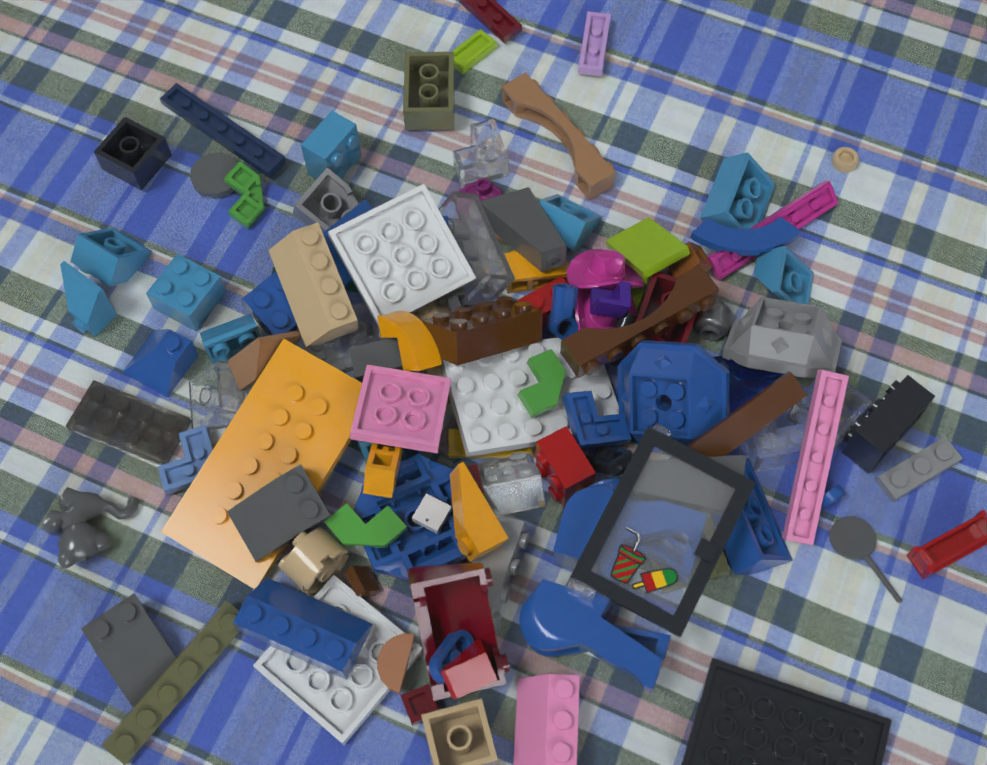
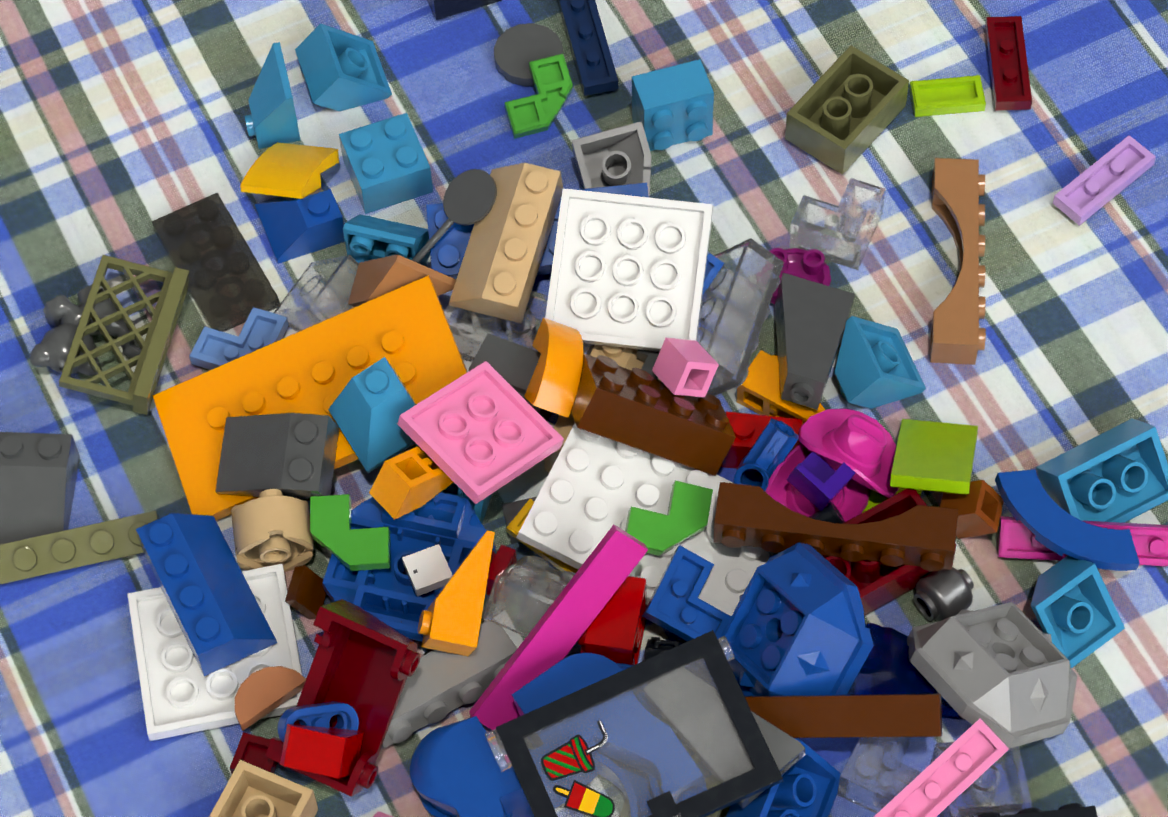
camera: 40 degrees right, 5 degrees down
(130, 336) = (289, 170): none -> yellow slope
(136, 495) = (157, 341): none -> olive fence
(268, 278) = (465, 203): none -> dark grey piece
(324, 443) = (370, 413): none -> dark azure slope
(482, 289) = (685, 367): none -> bright pink brick
(544, 492) = (561, 624): none -> dark pink tile

